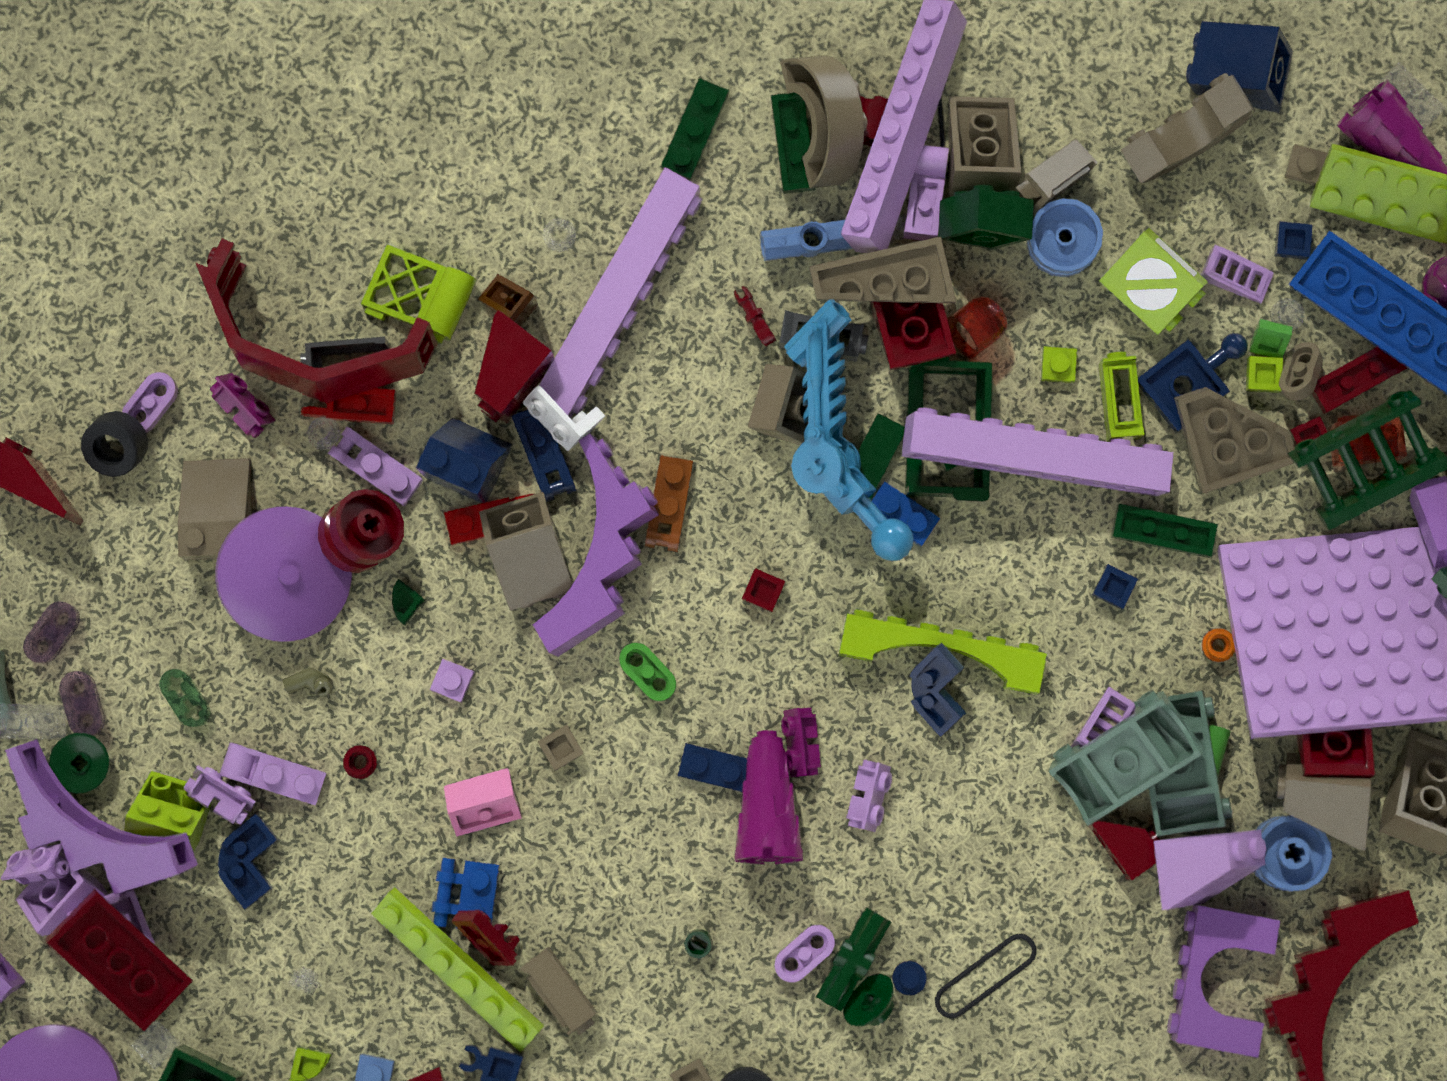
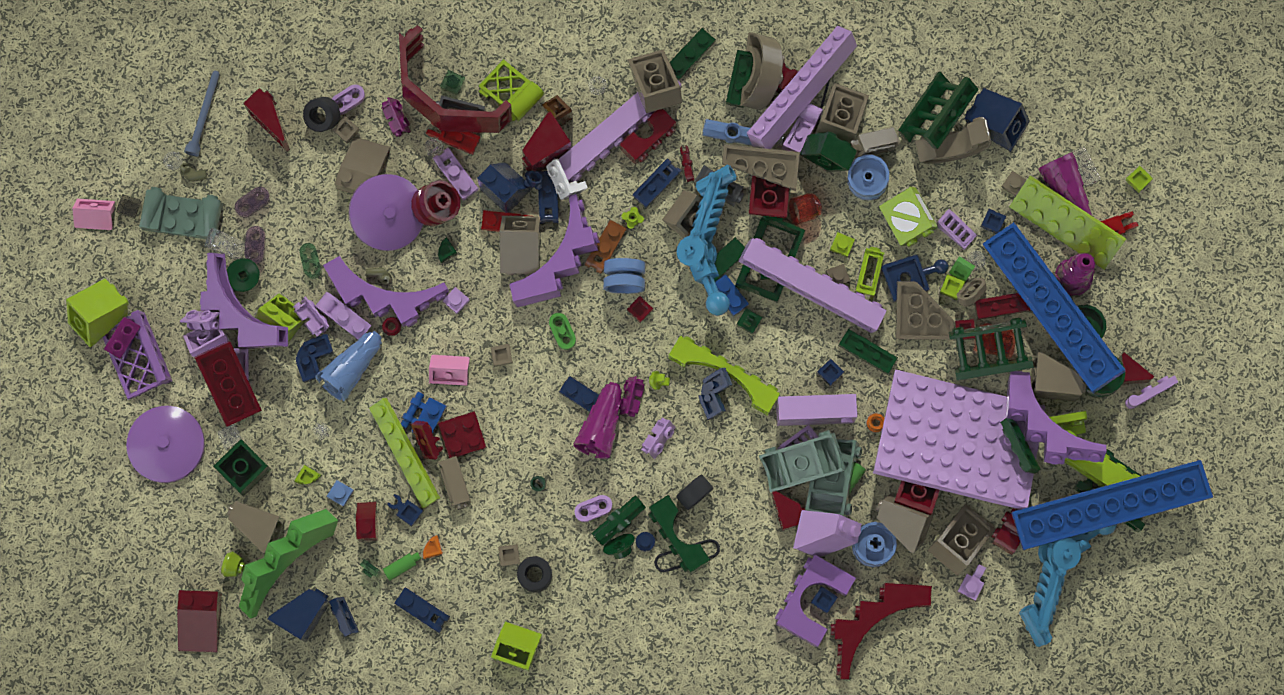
camera: 15 degrees right, 5 degrees down
(165, 455) = (346, 130): none -> dark tan plate
(312, 861) = (347, 368): none -> medium blue cone
(316, 312) = (452, 82): none -> clear green plate
(368, 720) = (404, 304): none -> medium lavender arch
(510, 426) = (533, 175): none -> dark blue plate
(543, 905) = (462, 435): none -> dark red plate
(655, 196) = (655, 81): none -> dark tan slope
(664, 319) = (638, 148): none -> dark red arch
(696, 448) = (631, 223): none -> lime plate
(715, 368) = (656, 183): none -> dark blue plate
(718, 541) = (624, 275): none -> medium blue wheel
(834, 699) = (657, 380): none -> lime plate
(950, 546) = (749, 321): none -> dark green tile
(963, 868) = (694, 492): none -> black tyre
(997, 977) = (691, 555): none -> dark green arch
(1070, 418) = (839, 274): none -> dark tan plate
(1118, 660) = (816, 409): none -> lavender brick
(1165, 89) = (947, 117): none -> dark green fence
(1237, 973) = (824, 600): none -> dark blue plate

